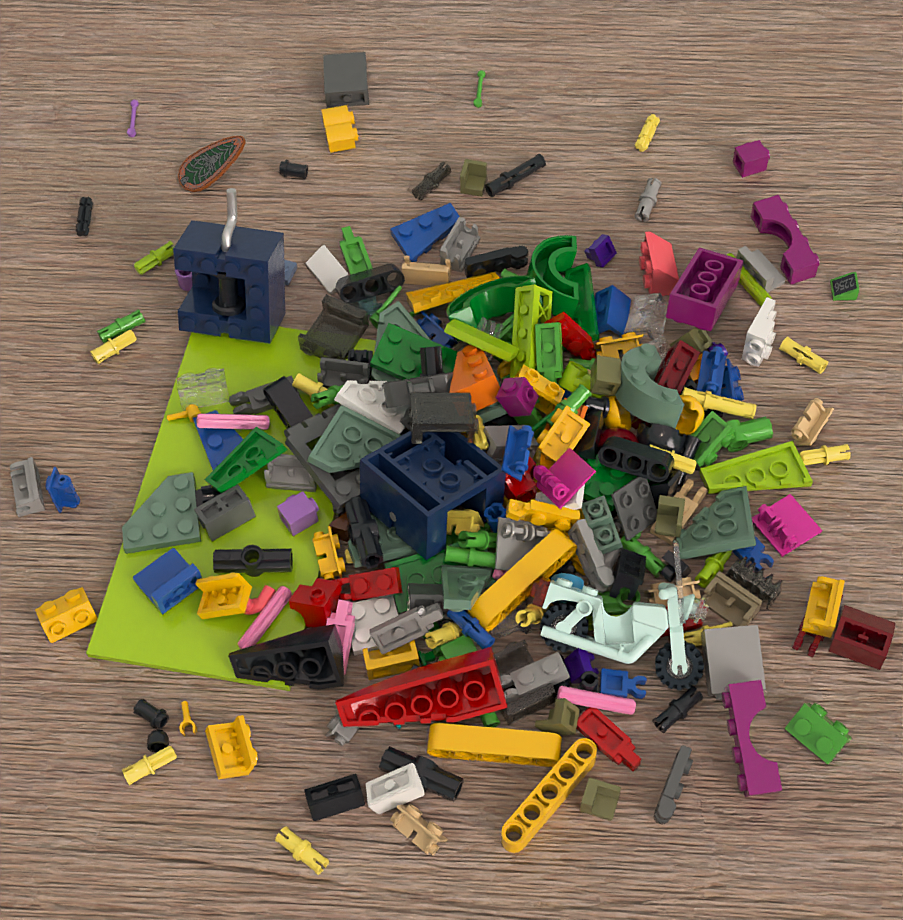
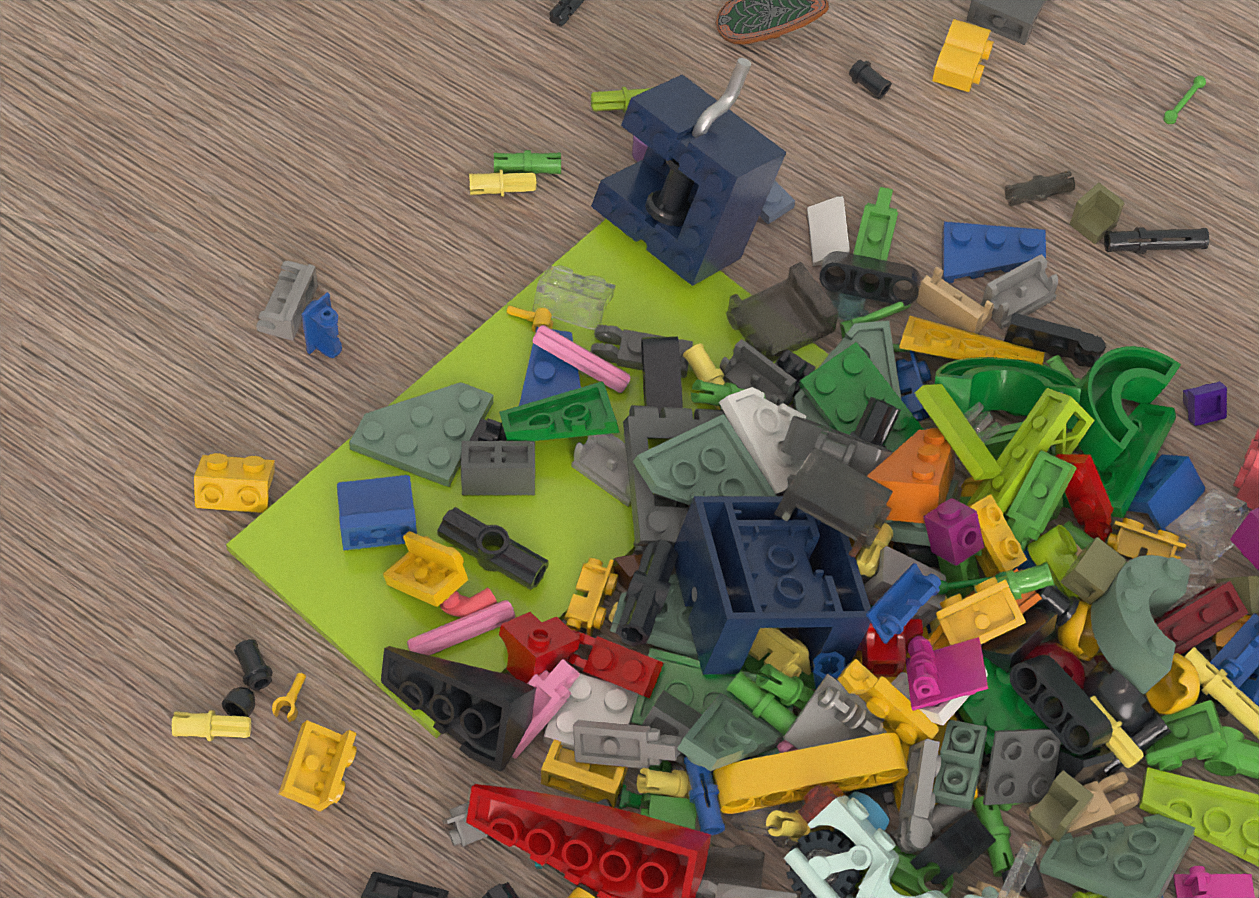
camera: 25 degrees right, 0 degrees up
(298, 513) = (587, 520): medium lavender brick -> none

